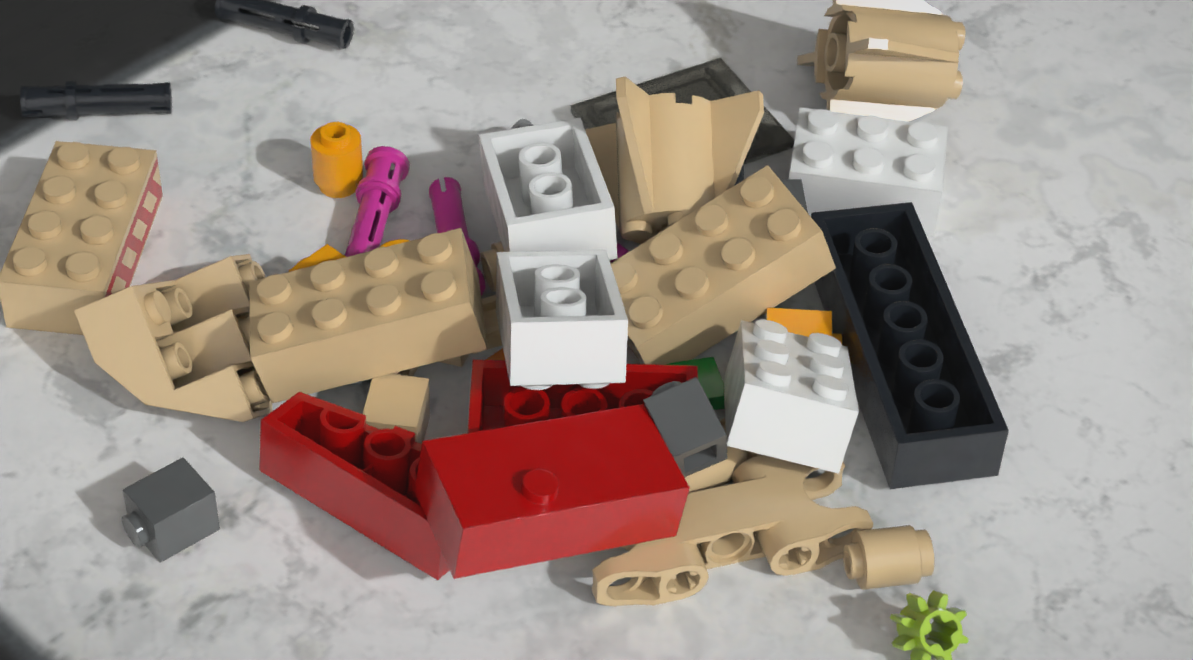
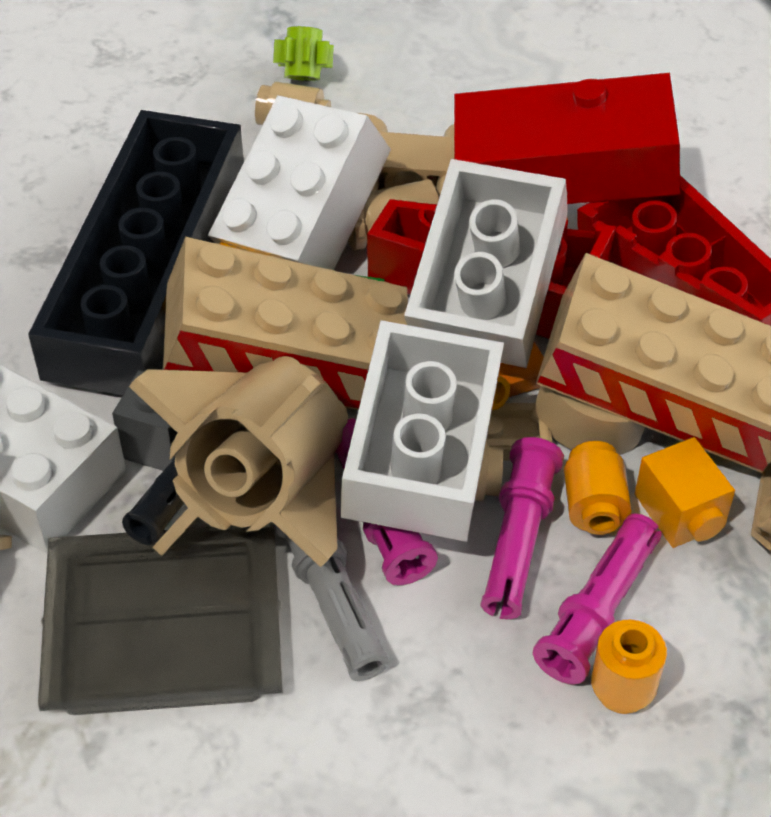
camera: 155 degrees left, 5 degrees up
(688, 425) = (419, 161): dark grey brick -> none

